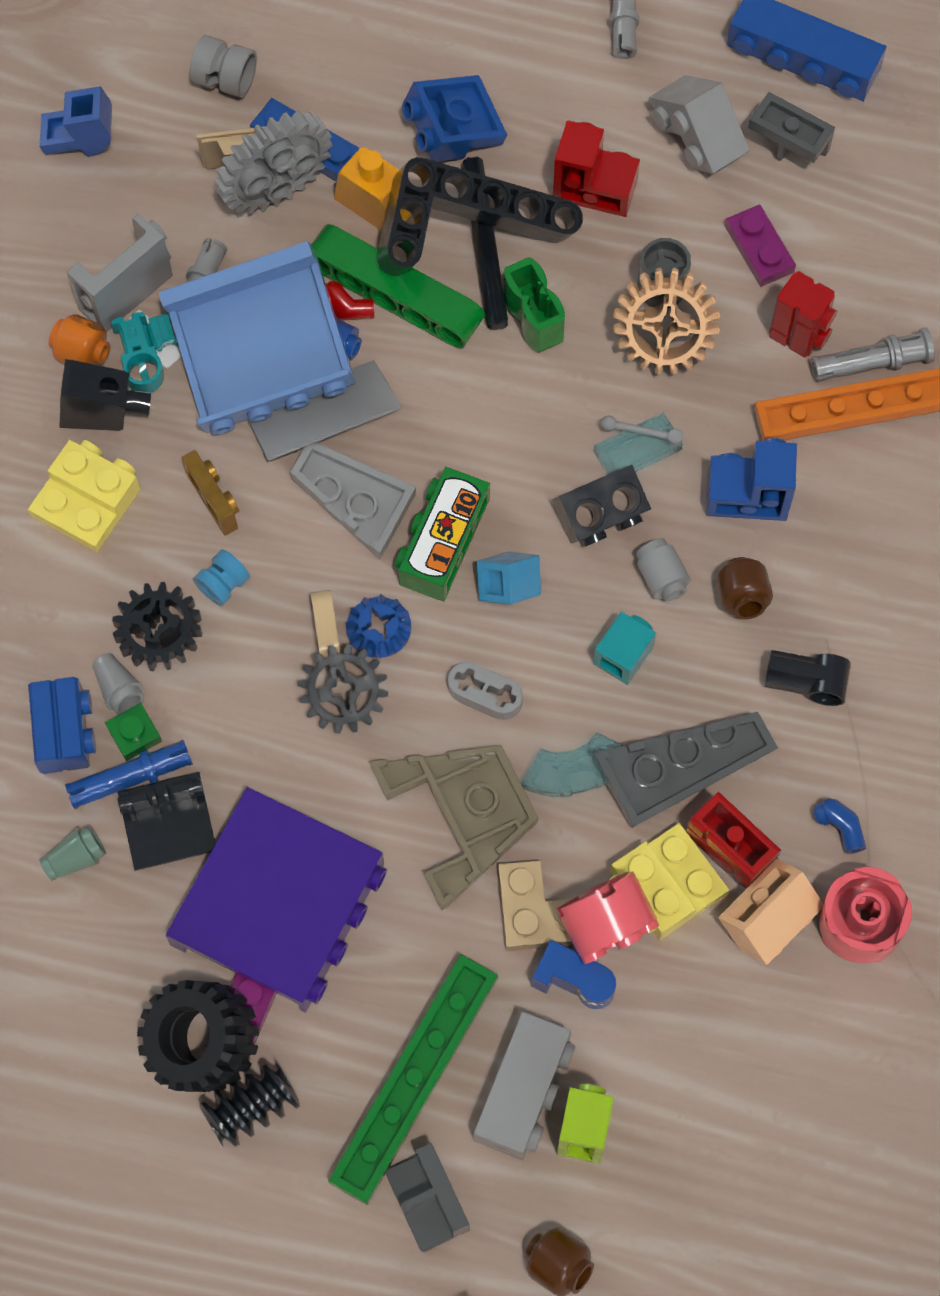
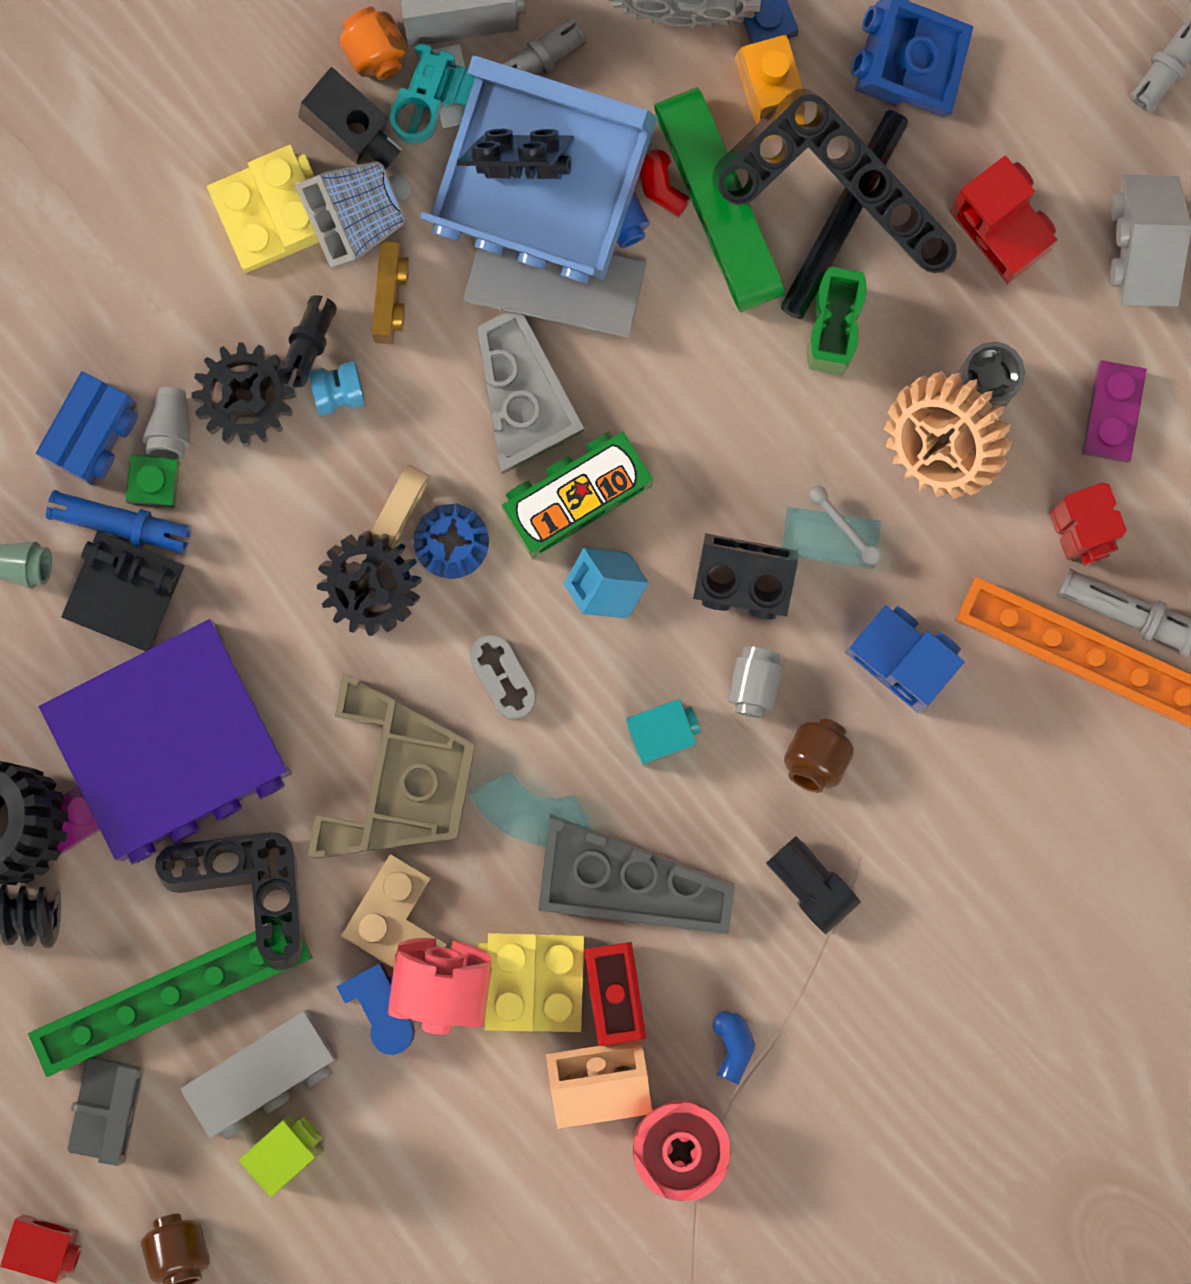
camera: 35 degrees right, 15 degrees up
(145, 449) = (353, 209): none -> light grey torso
(177, 559) = (307, 341): none -> black pin
(219, 339) = (504, 154): none -> black hinge
(407, 944) = (250, 870): none -> black beam

